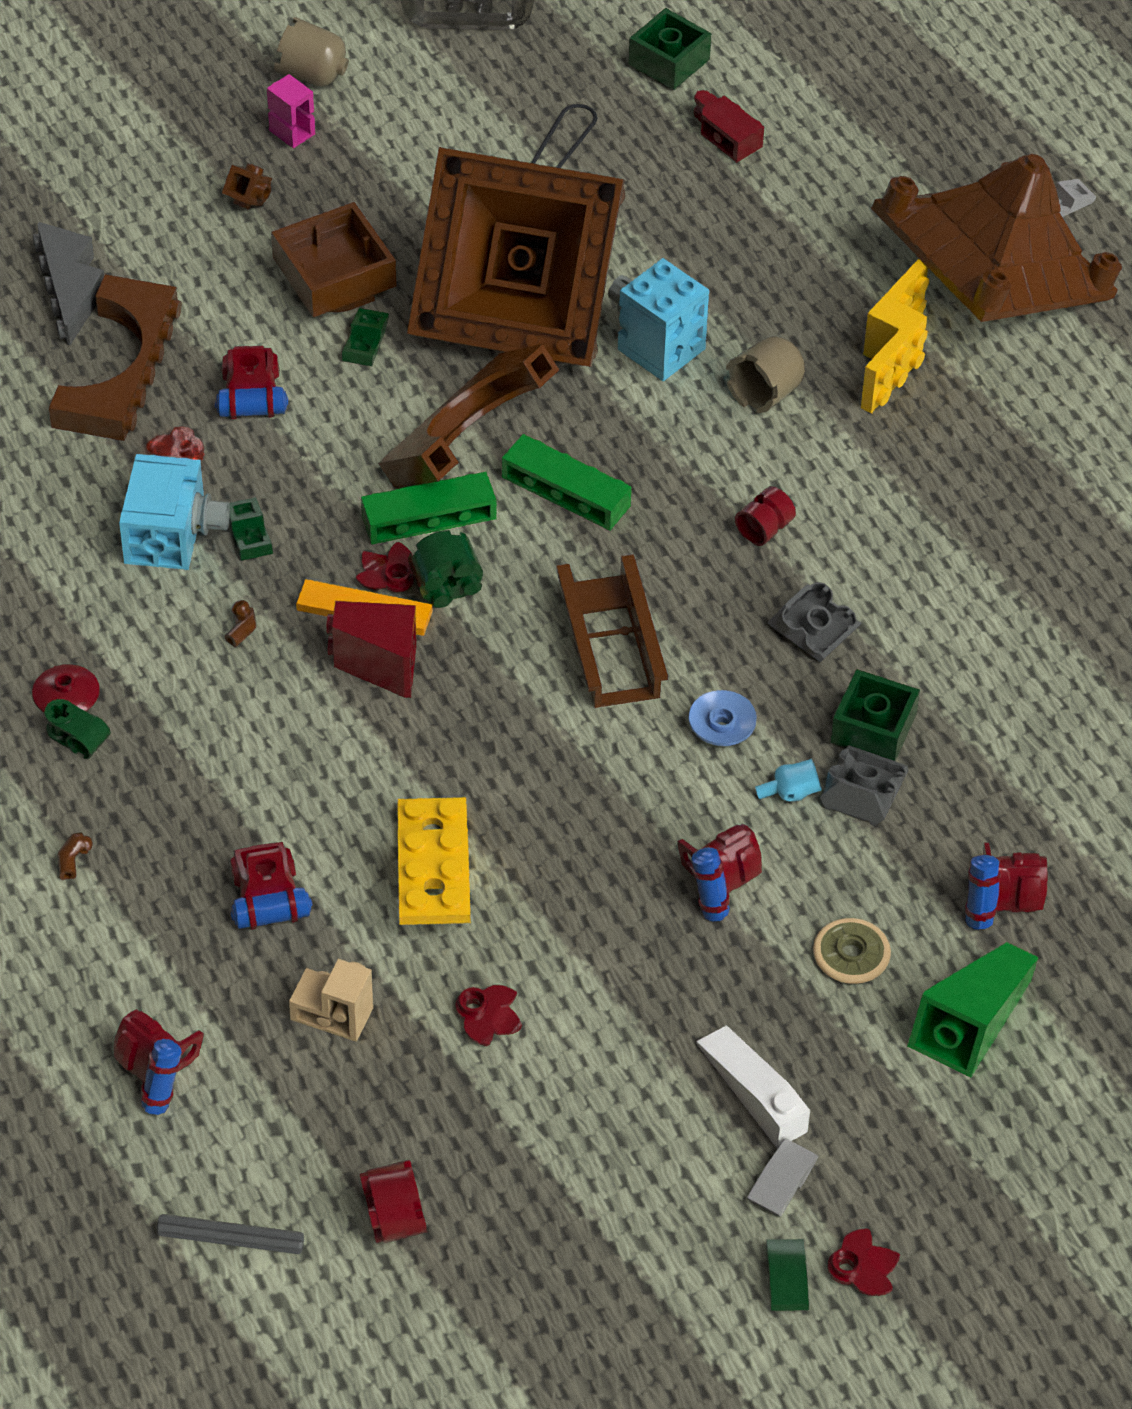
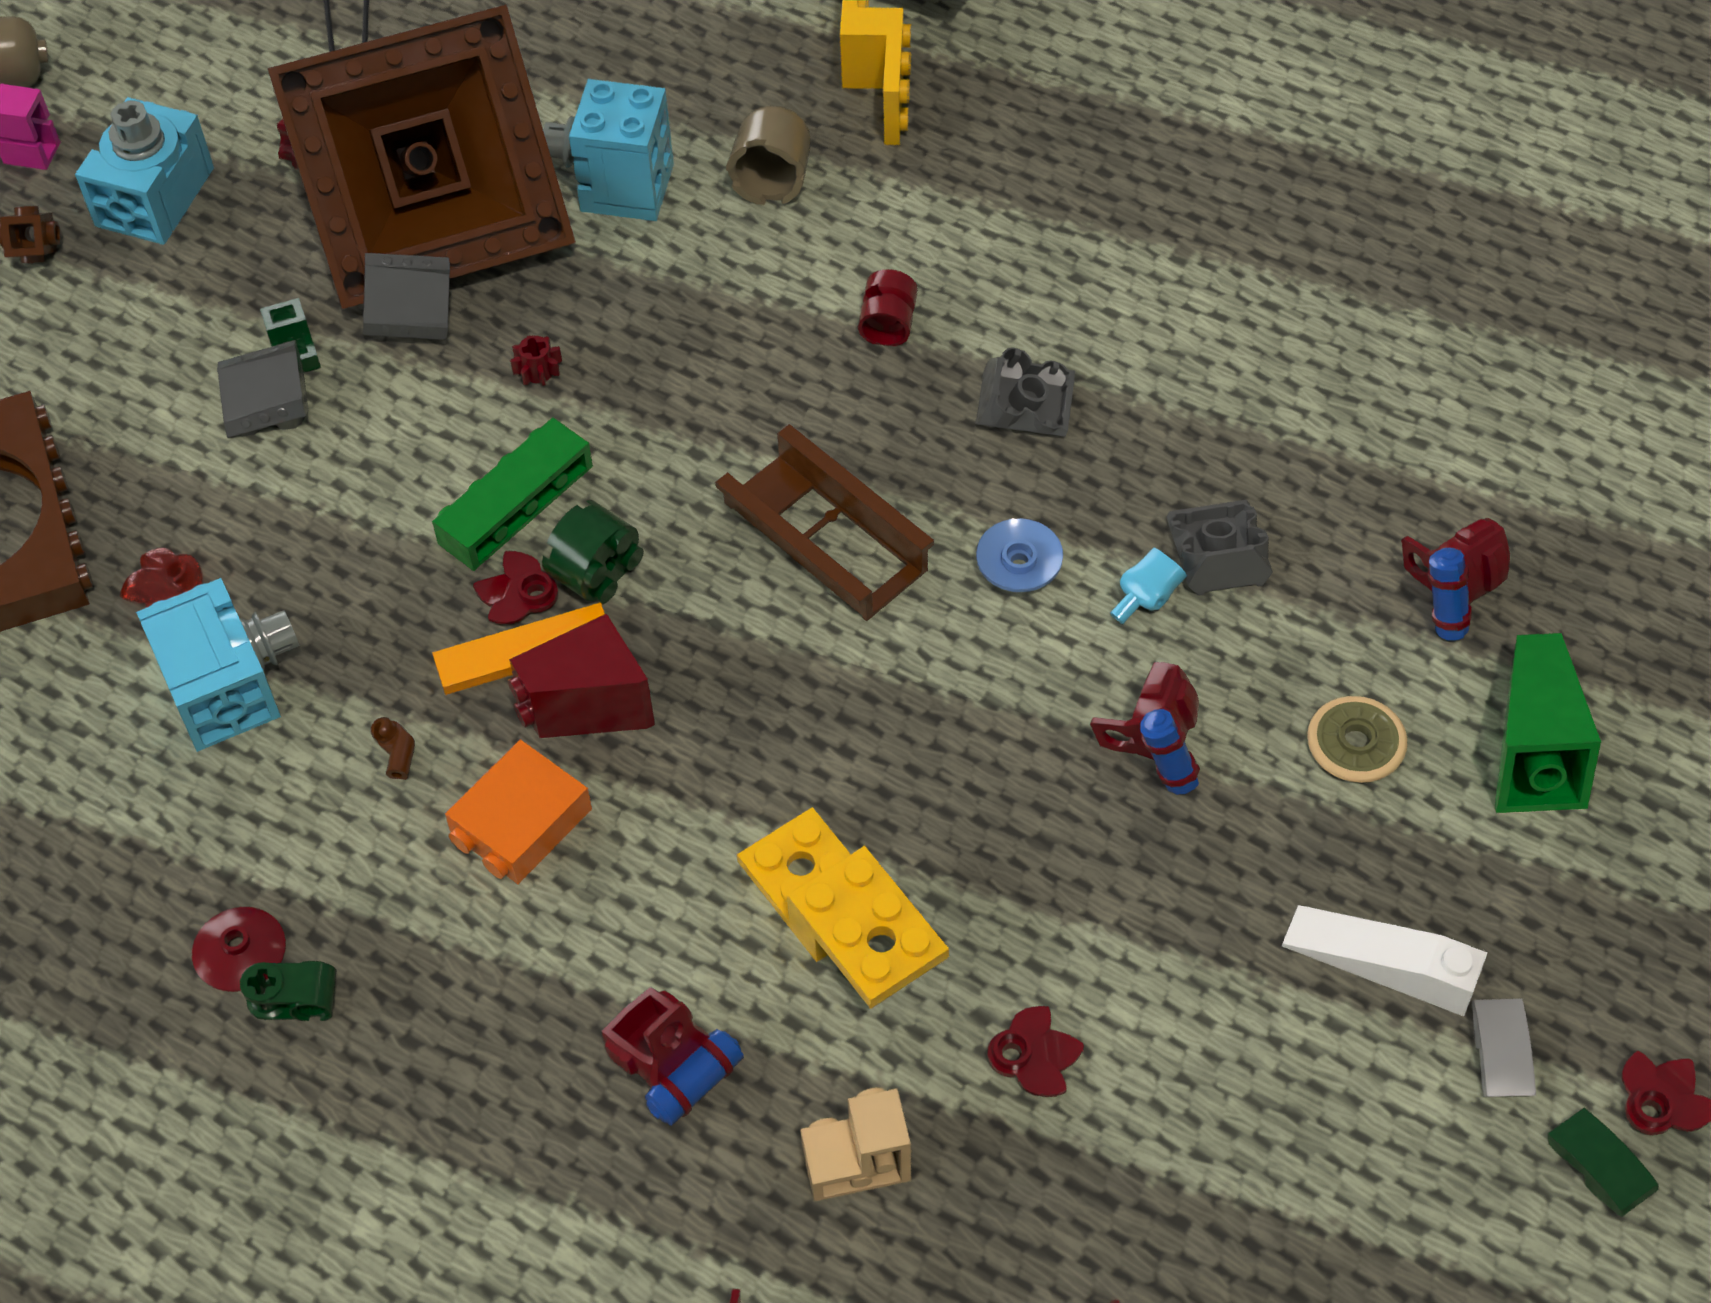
camera: 30 degrees left, 5 degrees up
(75, 844) = (393, 1153): reddish brown arm -> none
(249, 529) = (321, 630): dark green slope -> none
(250, 383) = (199, 458): dark red piece -> none
(283, 701) = (517, 812): none -> orange brick
(321, 361) = (263, 390): none -> dark grey slope
(334, 260) = (198, 267): reddish brown container -> none
(349, 170) = (145, 170): none -> medium azure piece
(426, 452) = (462, 435): reddish brown arch -> none
(452, 345) = (406, 296): none -> dark grey slope
(507, 429) = (536, 360): none -> dark red gear
(566, 482) = (643, 383): green brick -> none
(875, 715) = (1179, 462): dark green brick -> none

